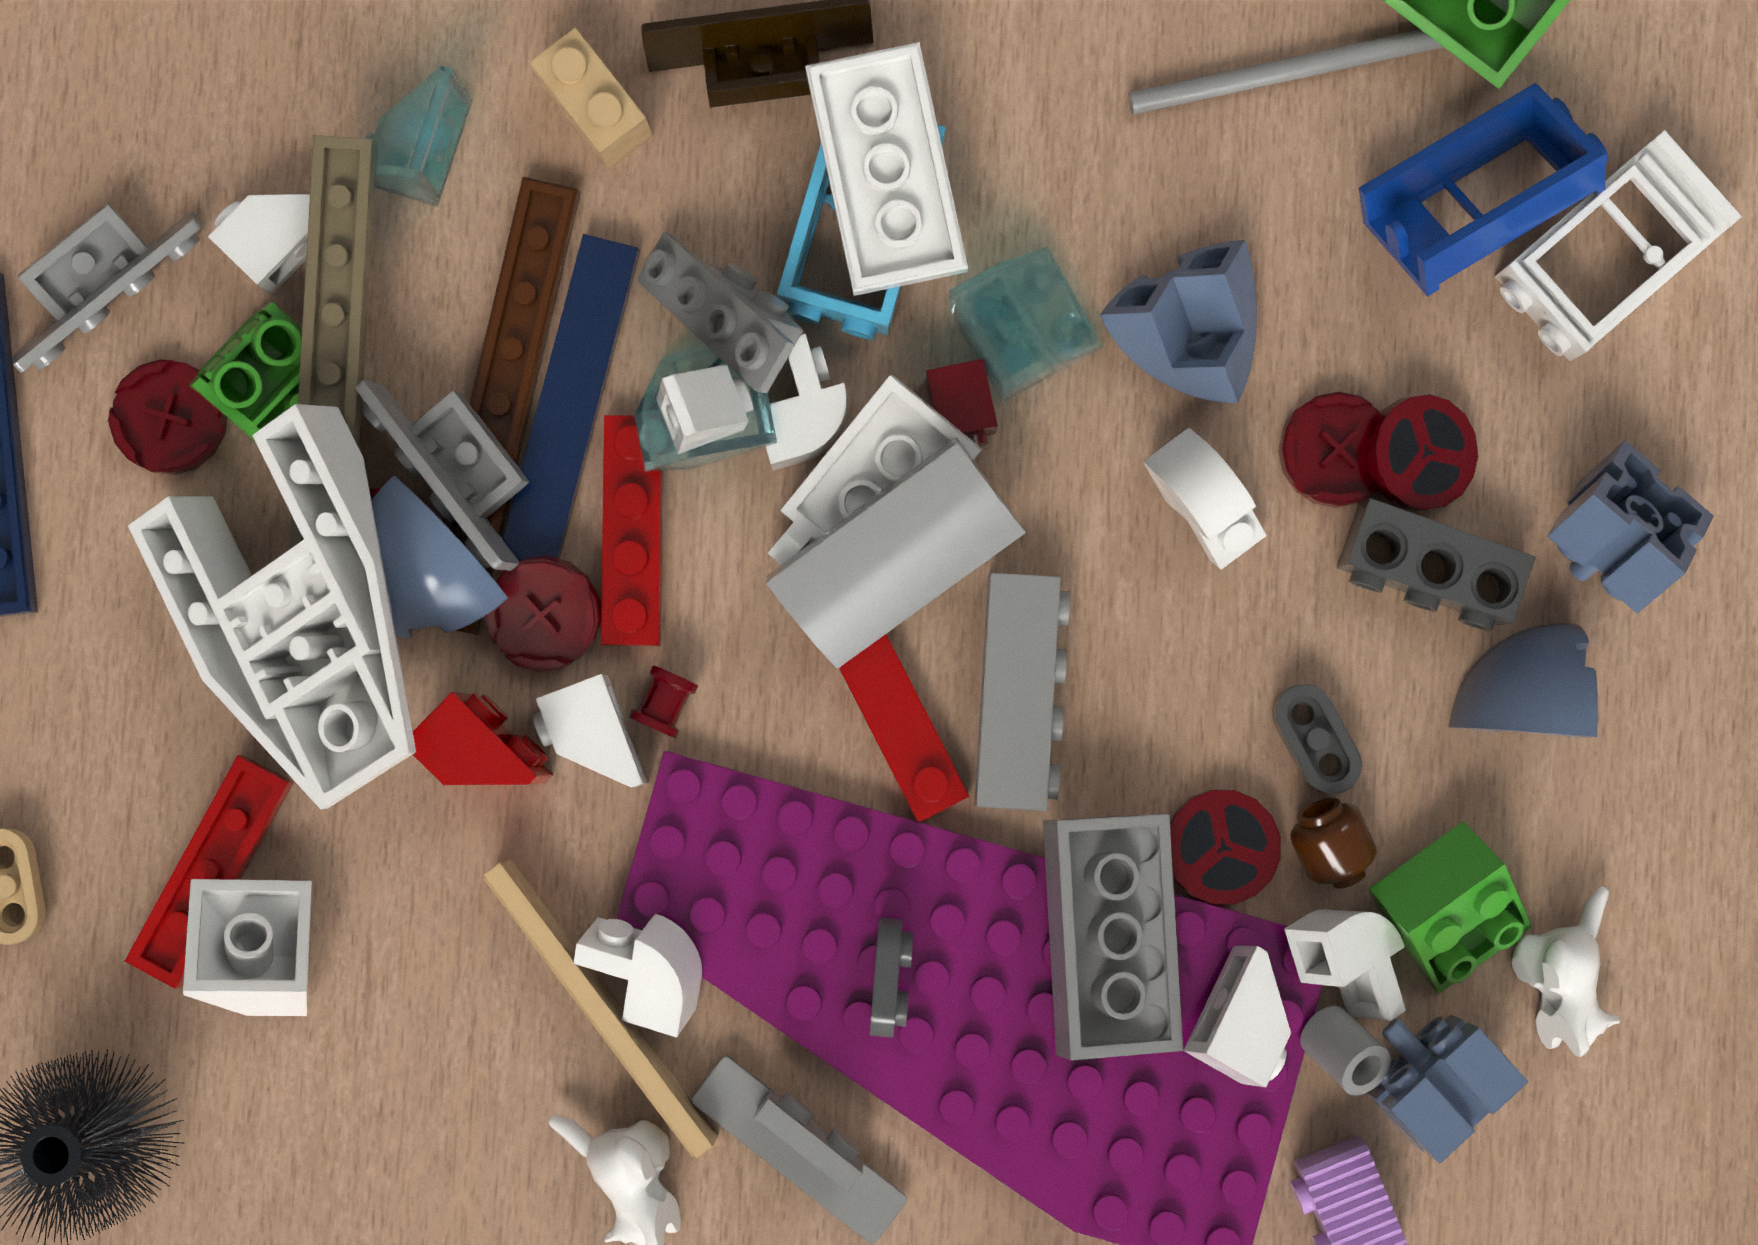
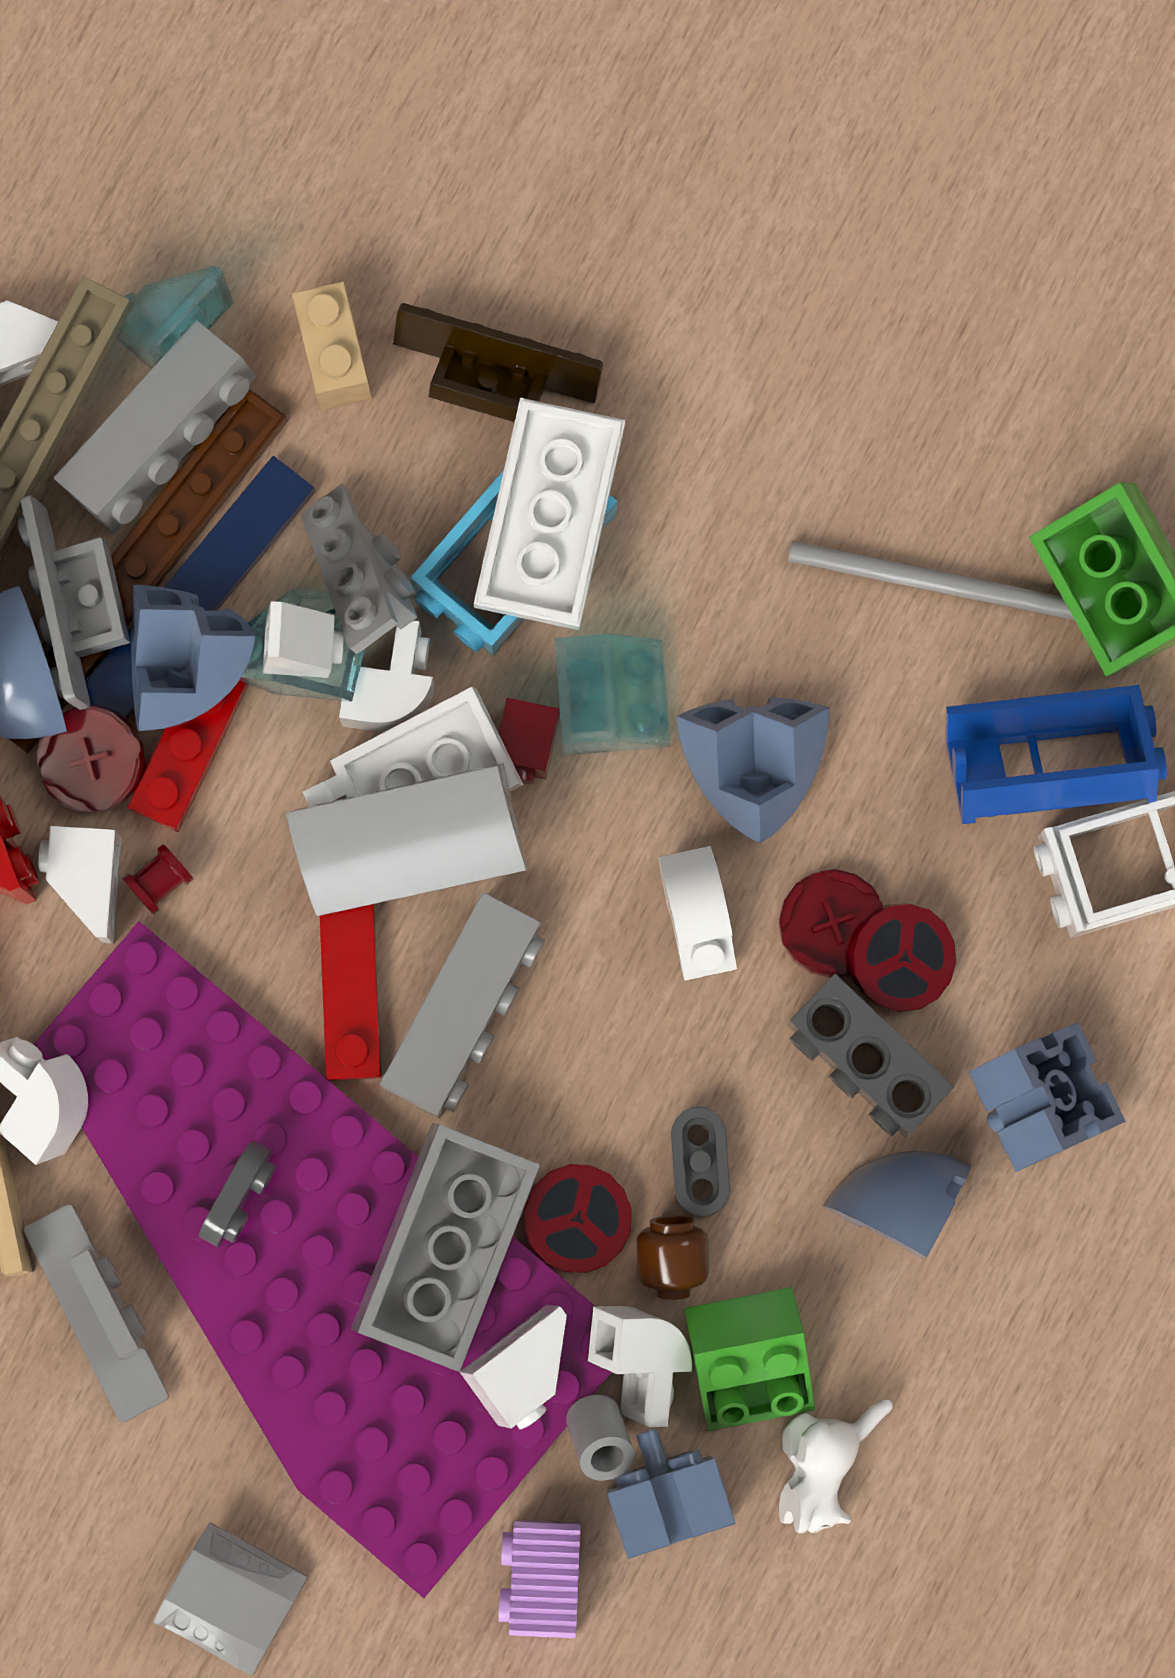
camera: 25 degrees right, 5 degrees down
(455, 256) = (156, 427): none -> light grey brick
(588, 471) = (183, 655): none -> sand blue brick

